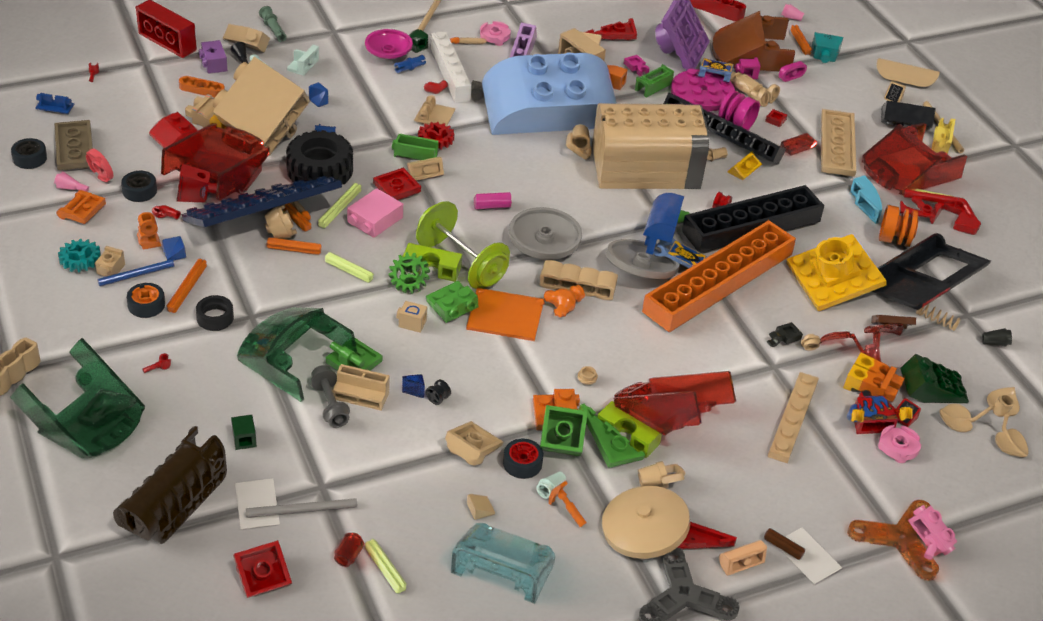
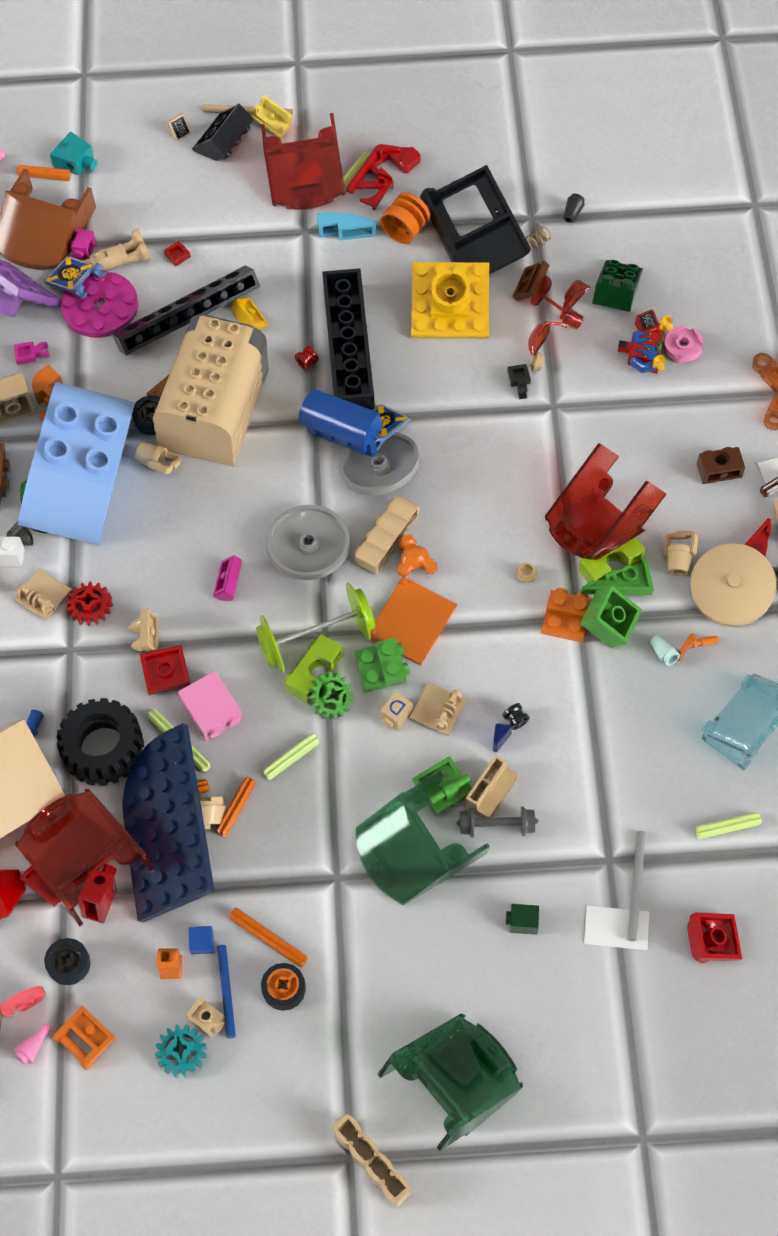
camera: 65 degrees left, 20 degrees up
(164, 363) = (390, 990): red hand -> none
(165, 211) = (123, 940): red arm -> none
(174, 489) = (600, 1005): dark brown piece -> none
(217, 322) = (332, 897): black tyre -> none
(348, 549) = (705, 852): clear red brick -> none
(415, 147) = (106, 632): bright green window -> none
(427, 344) = (438, 708): none -> tan hinge
(472, 442) = (595, 703): tan slope -> none
(479, 506) = (674, 721): tan slope -> none
(523, 458) = (634, 661): black wheel -> none
(655, 80) = (68, 343): bright green window -> none
(718, 276) = (425, 403): orange brick -> none
(739, 109) = (167, 284): dark pink wheel -> none
(777, 492) = (711, 471): none -> reddish brown brick
(792, 71) = (104, 210): dark pink plate -> none
(793, 417) = (626, 415): tan plate -> none
(799, 144) = (233, 250): clear red plate -> none
(838, 143) = (242, 213): tan plate -> none
(873, 376) = (600, 331): orange hips -> none
(906, 73) = (151, 101): tan brick -> none
(1003, 403) = (653, 242): tan plant -> none

